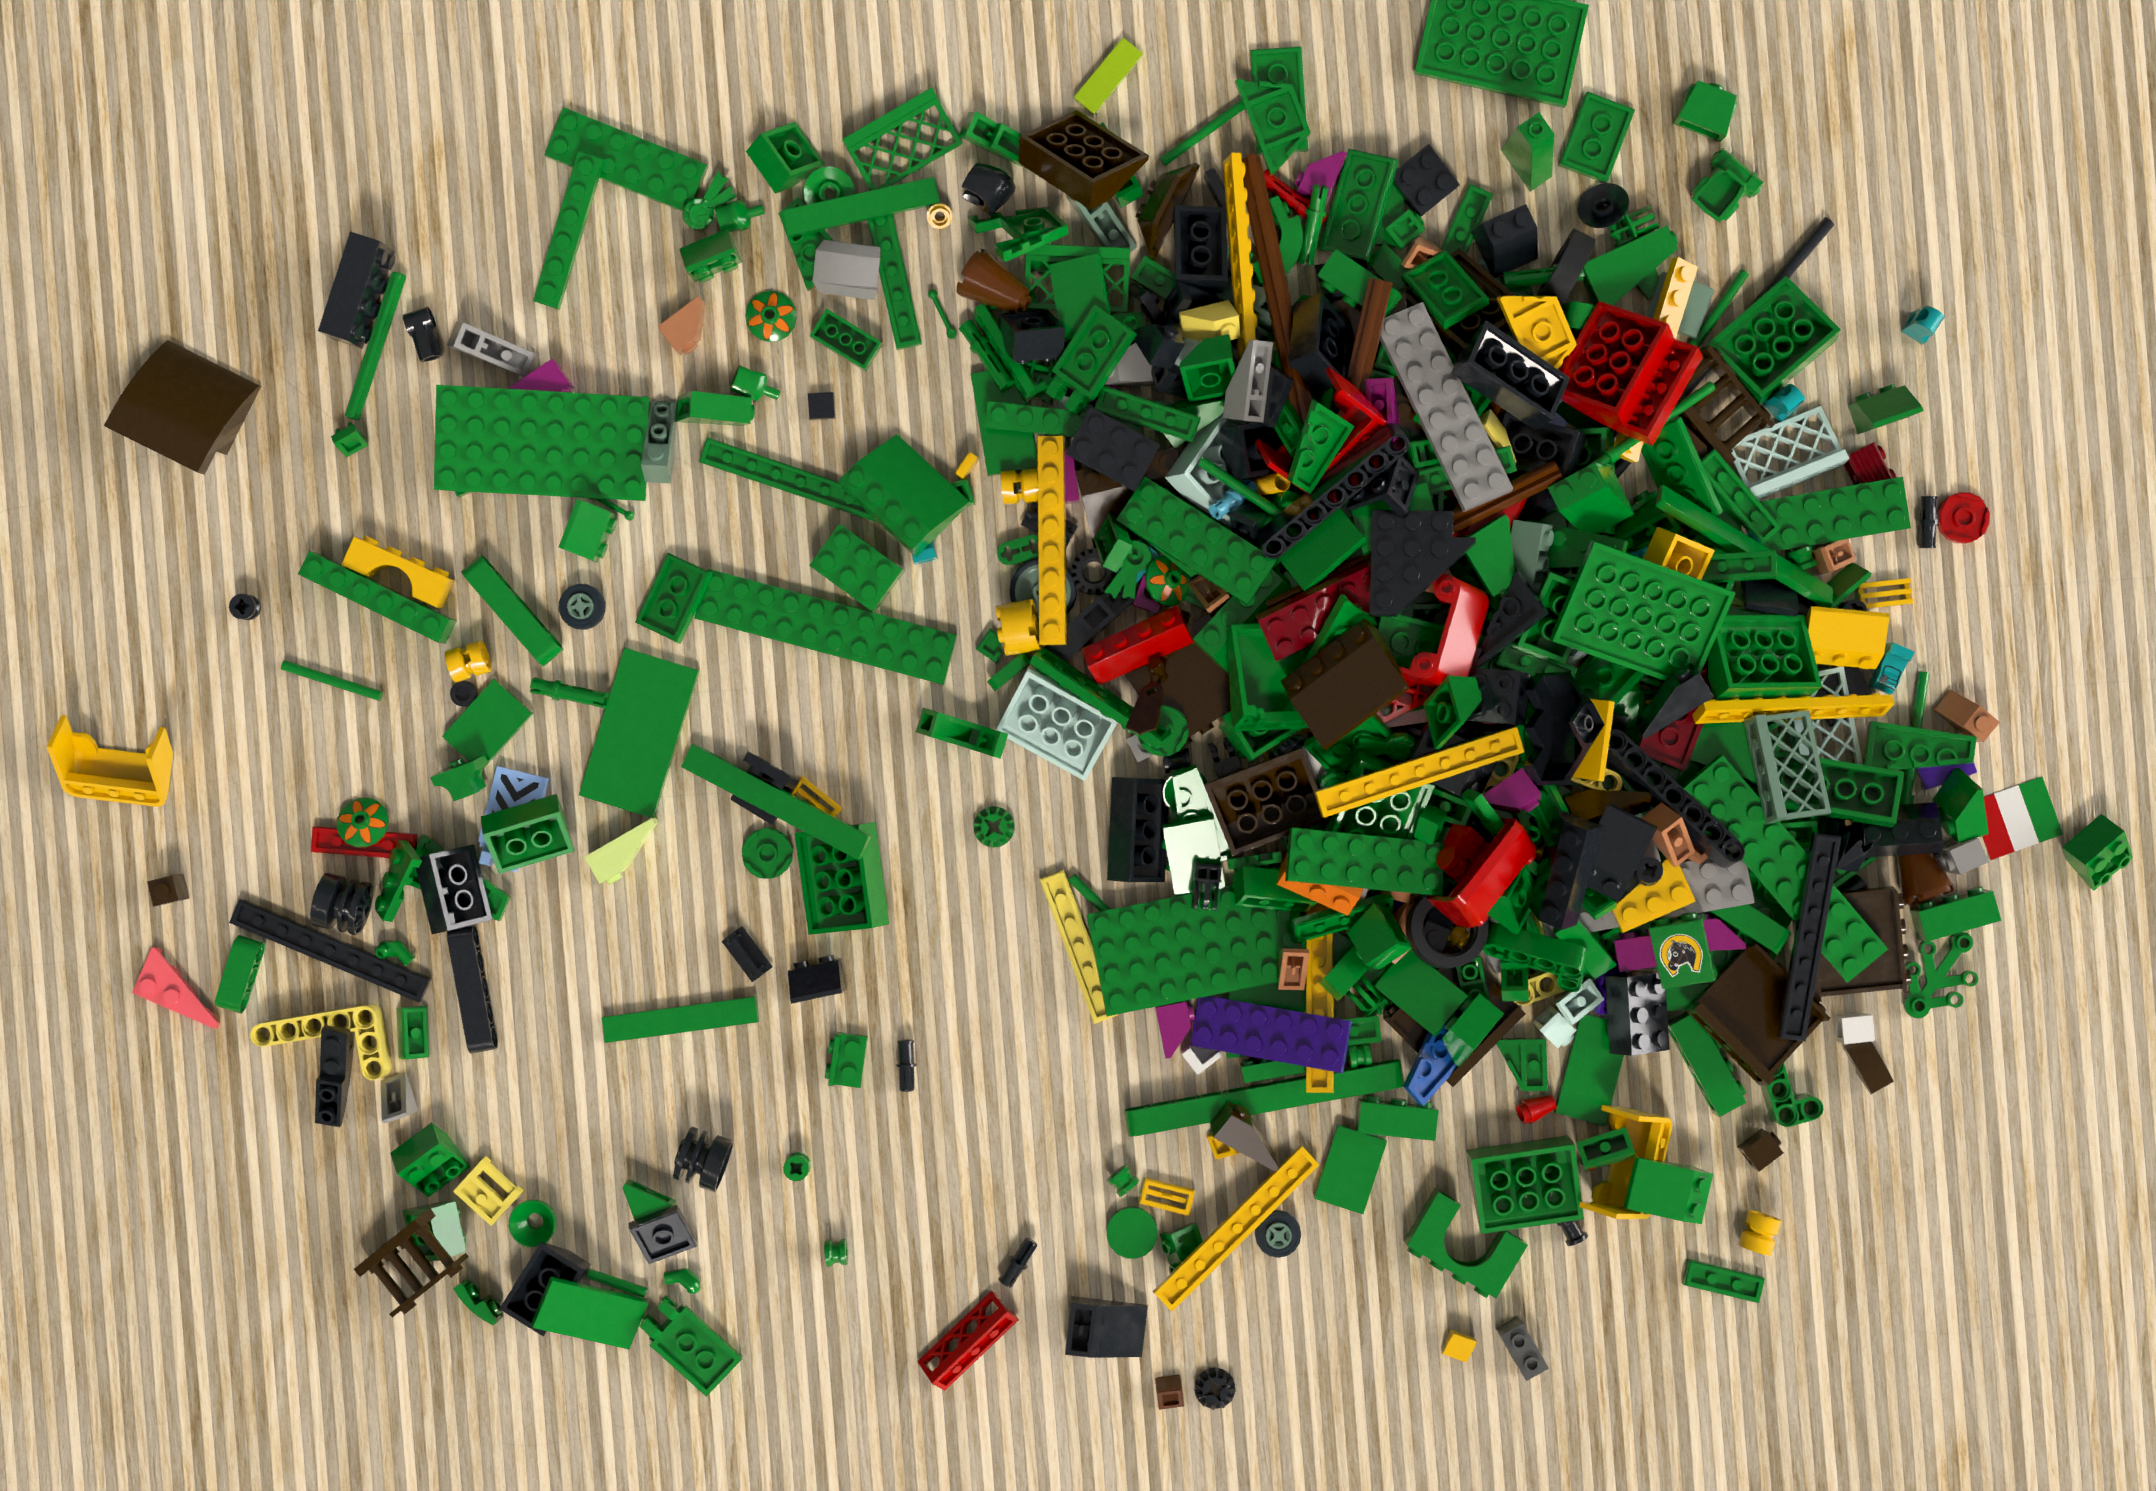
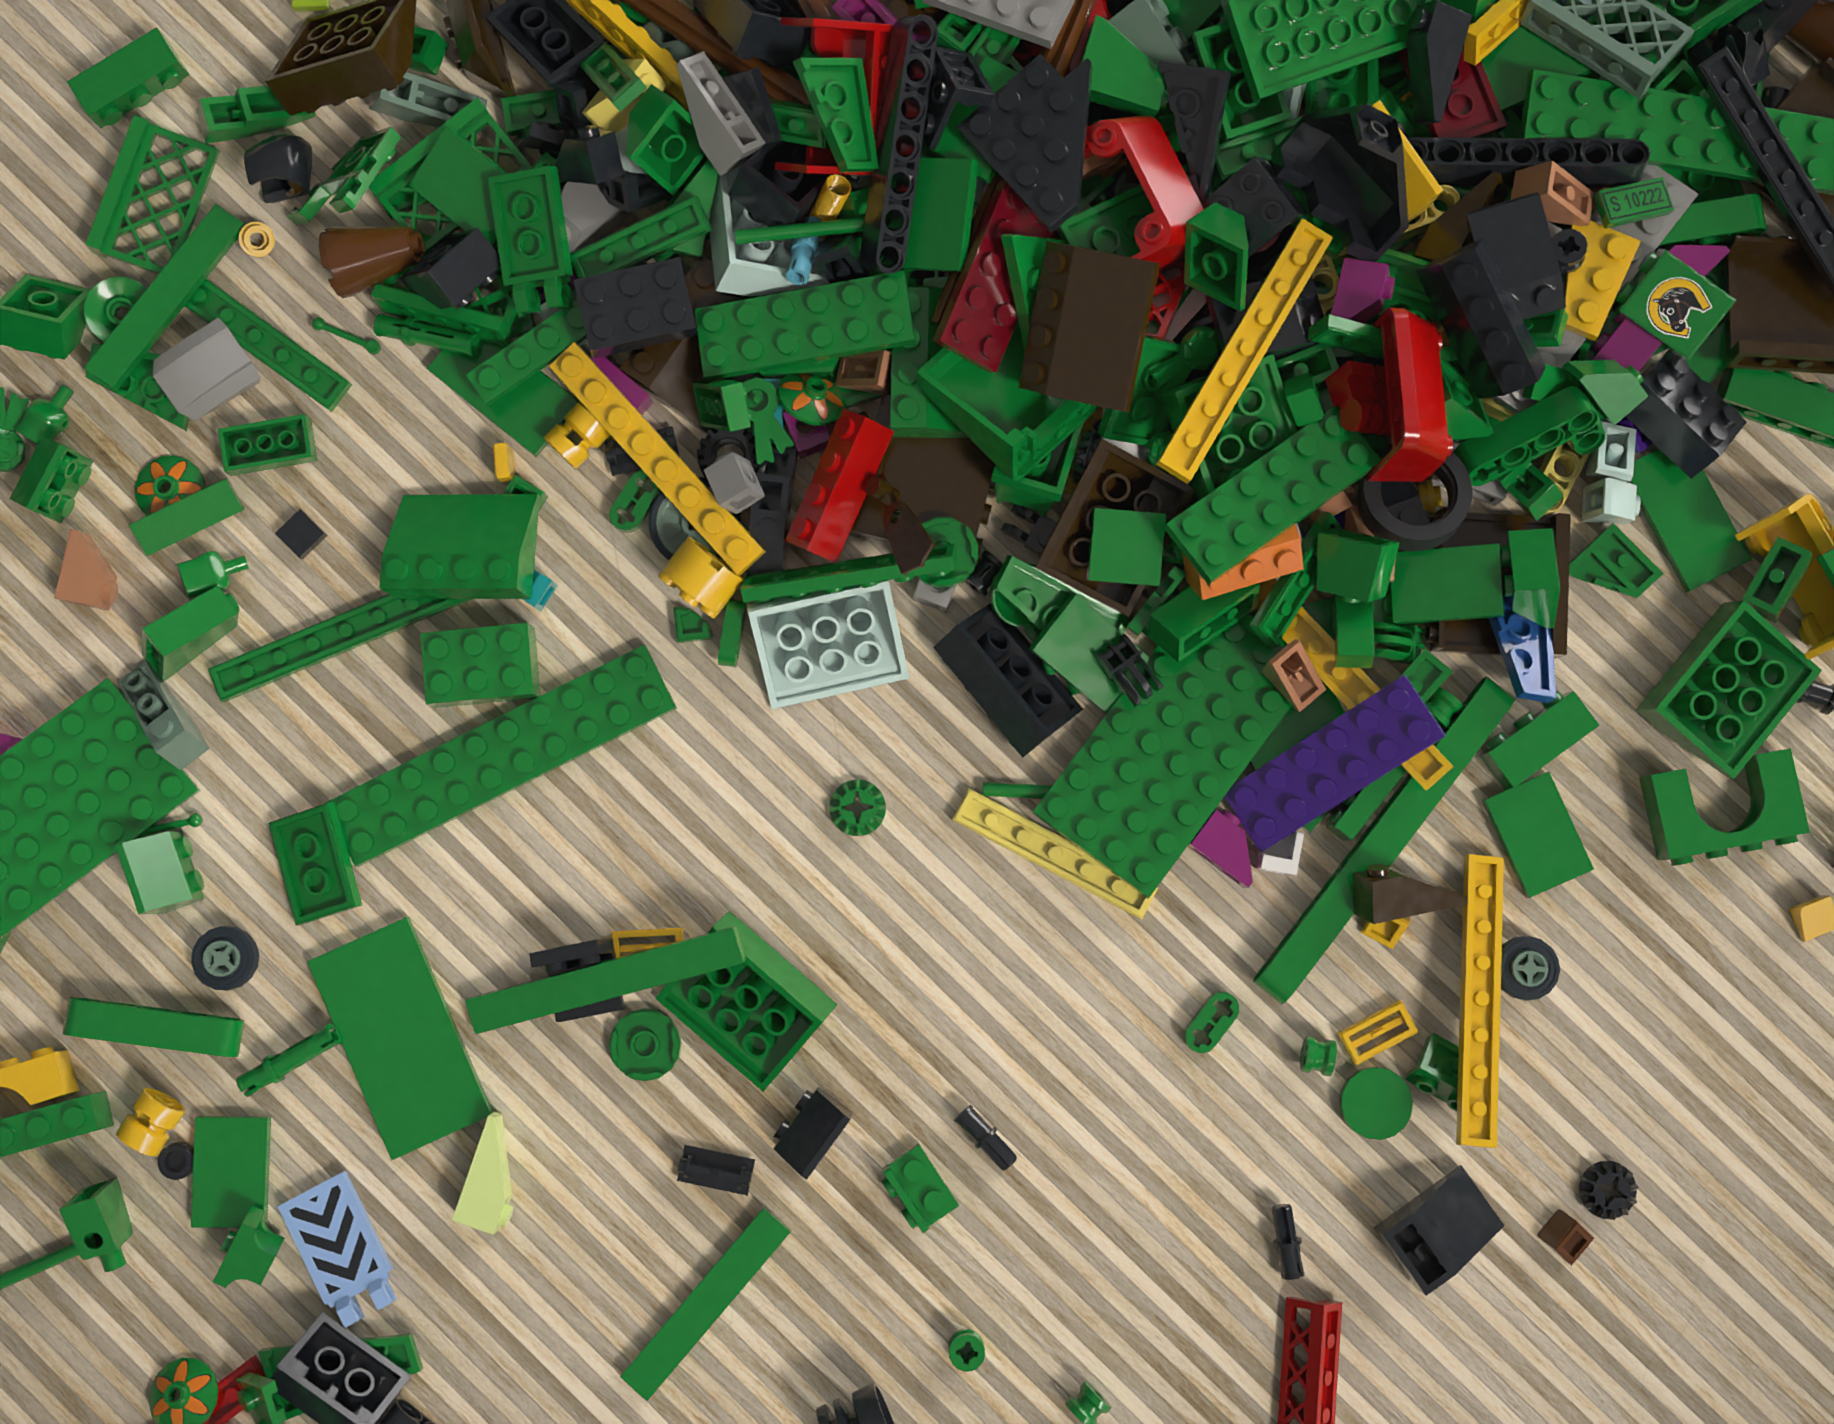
camera: 45 degrees left, 5 degrees down
(396, 692) = (99, 1223): none -> green torso
(527, 833) = (368, 1250): green slope -> none
(767, 341) = (186, 516): none -> green tile
(947, 60) = (128, 78): none -> green brick
(961, 733) = (738, 738): green arch -> none
(1082, 592) = (734, 482): none -> light grey brick
(1082, 1118) = (1204, 1017): none -> green beam
(1212, 310) = (613, 76): none -> green tile
(1263, 817) = (1126, 546): none -> green tile
(1472, 979) = (1484, 526): green slope -> none
(1535, 1108) = (1666, 605): red cone -> none
(1604, 963) = (1608, 386): none -> green slope
(1711, 877) = (1633, 202): none -> green tile

